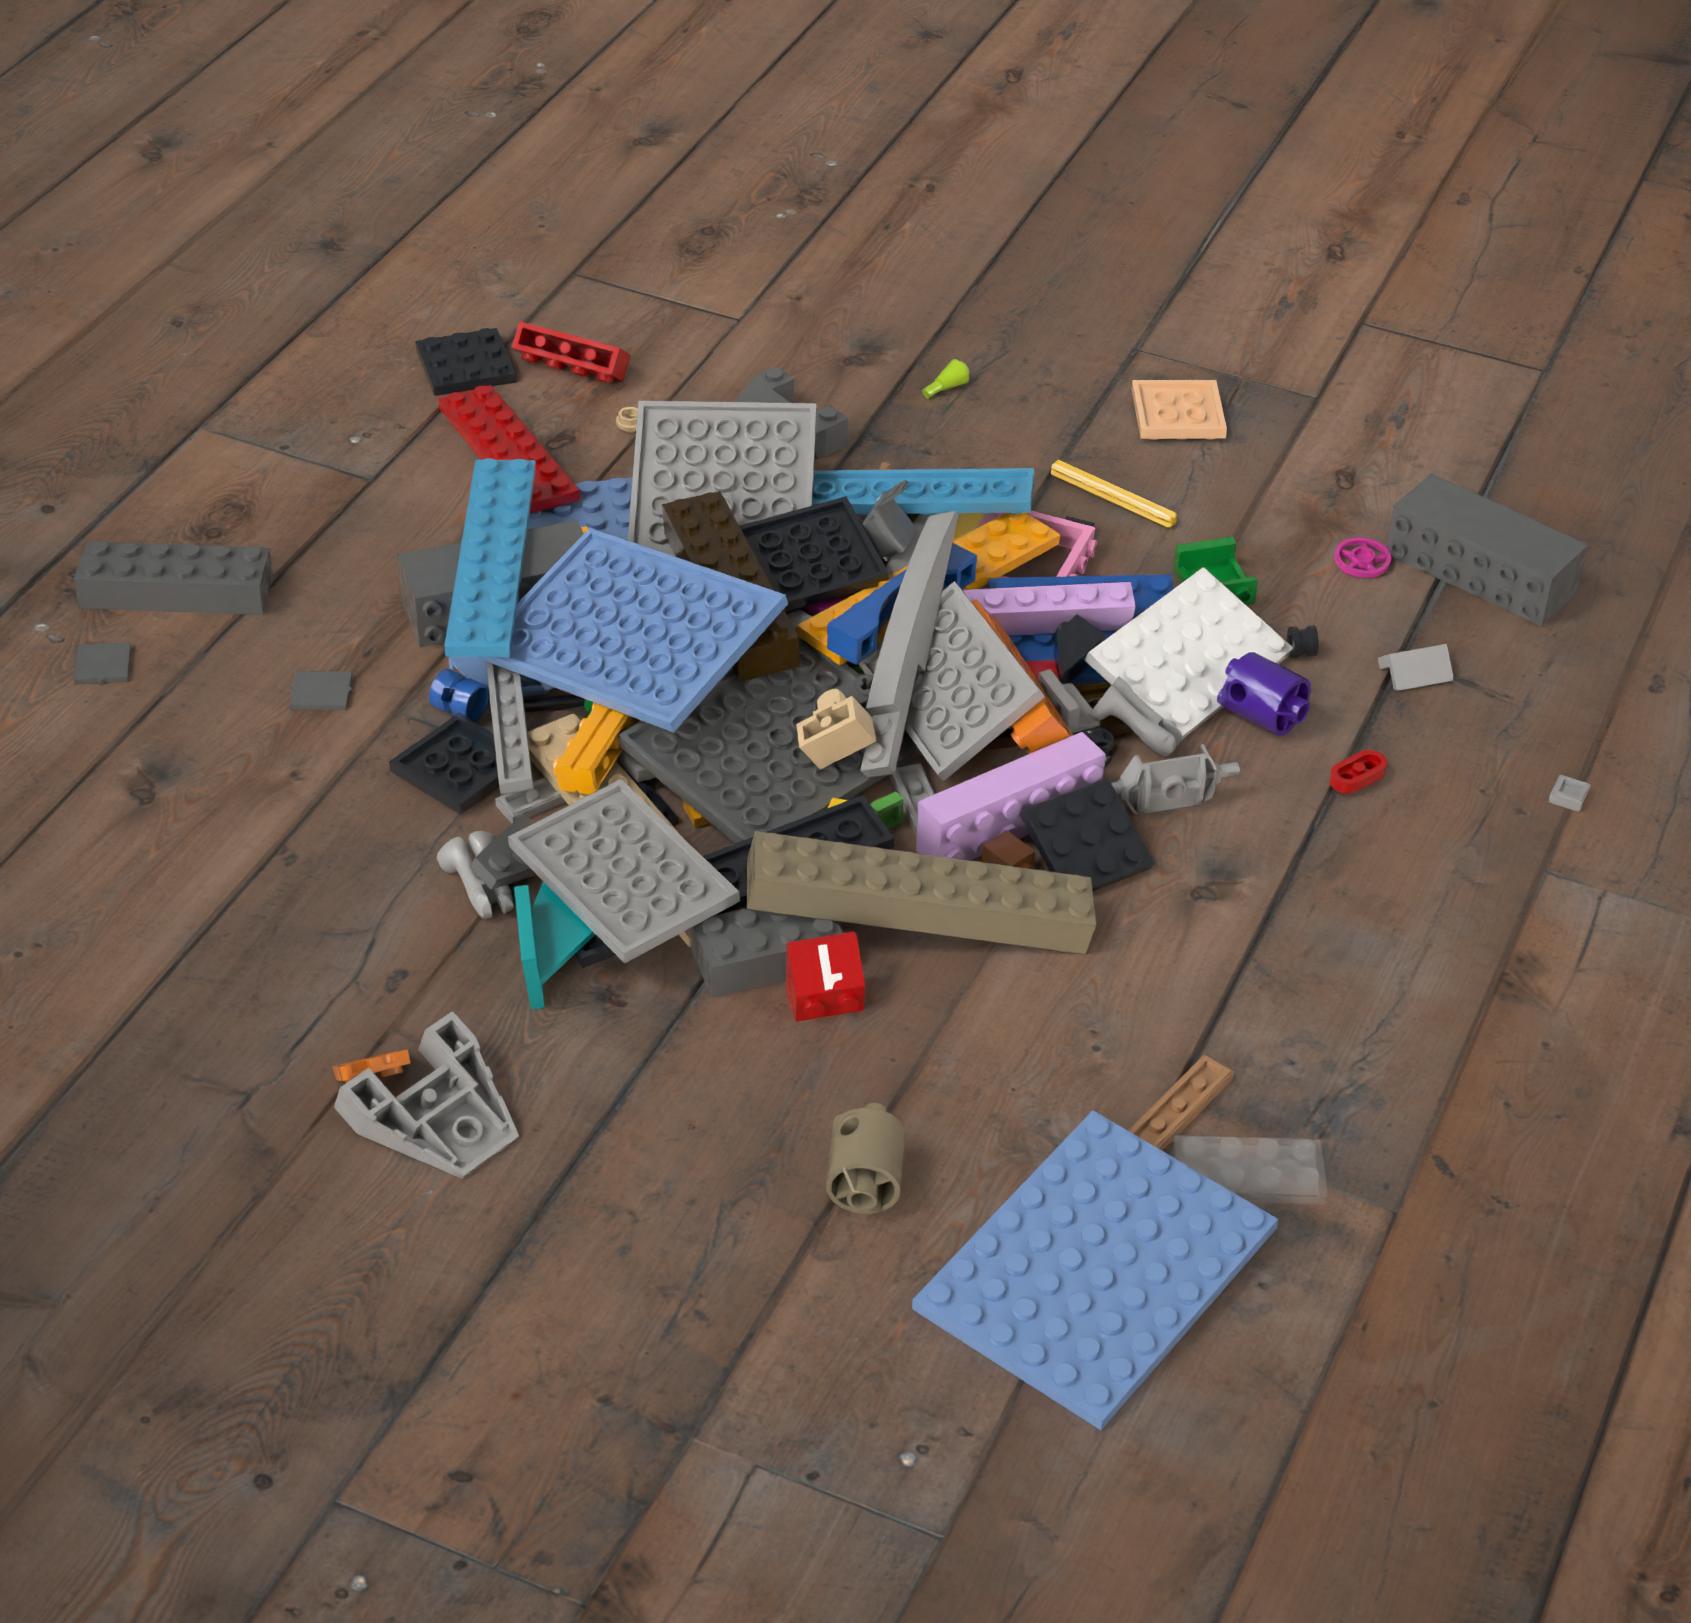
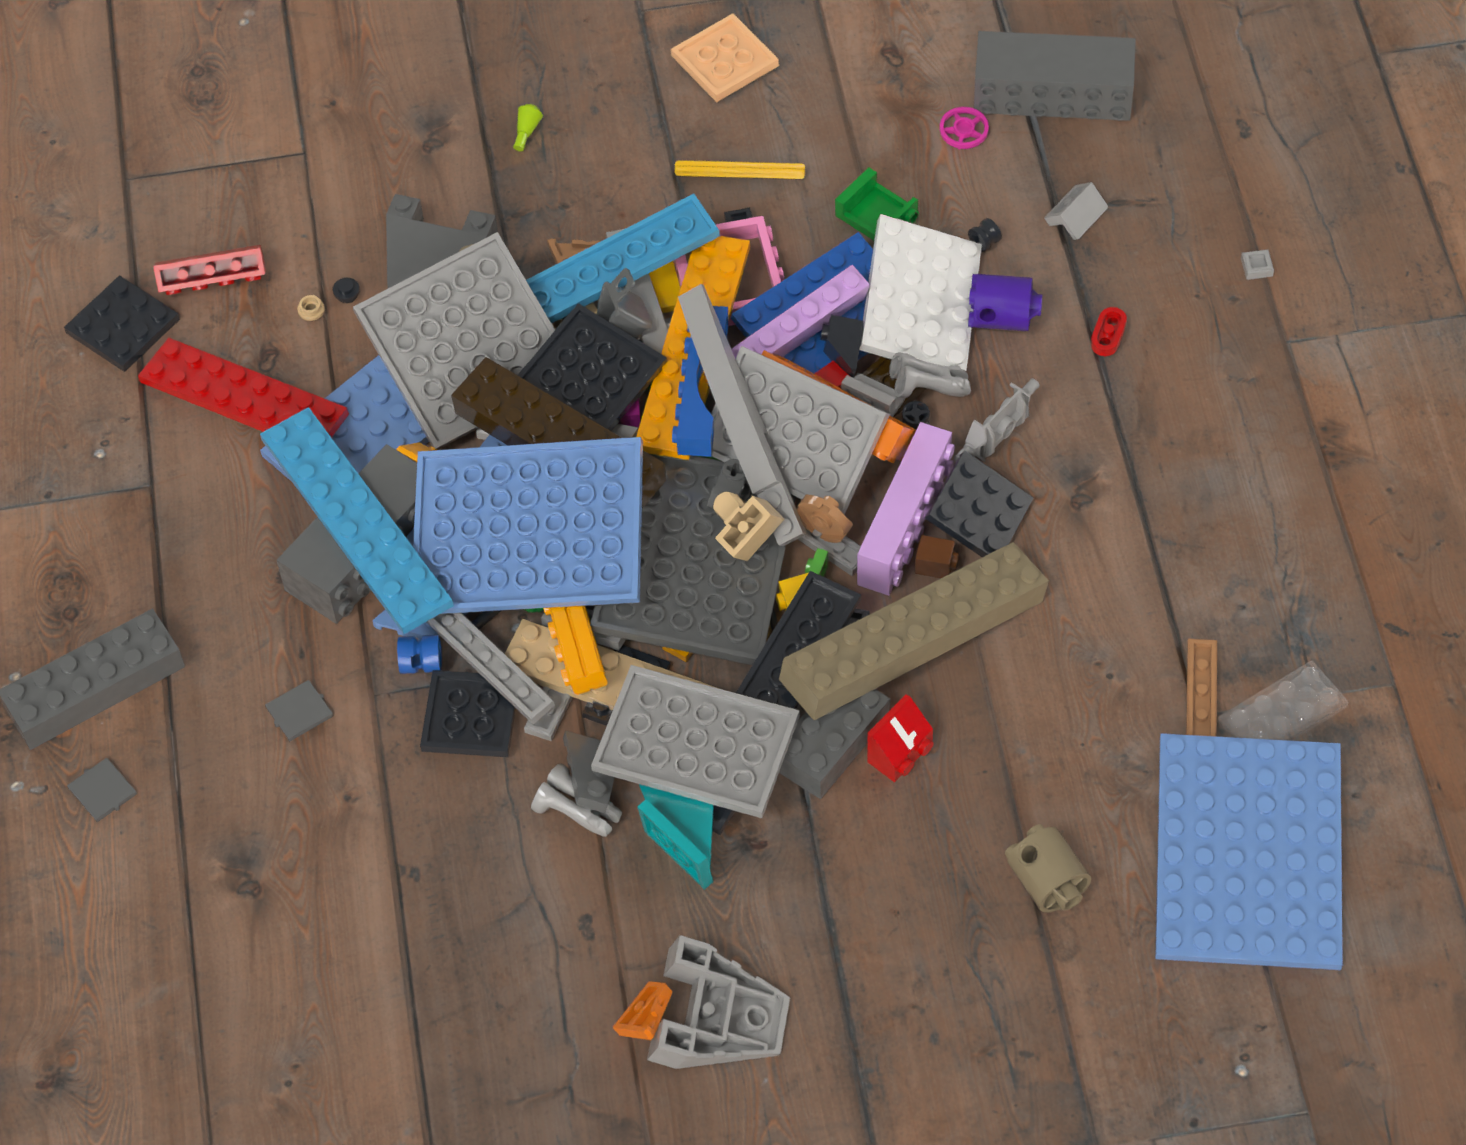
camera: 30 degrees left, 15 degrees up
(920, 766) = (824, 517): none -> medium nougat plate

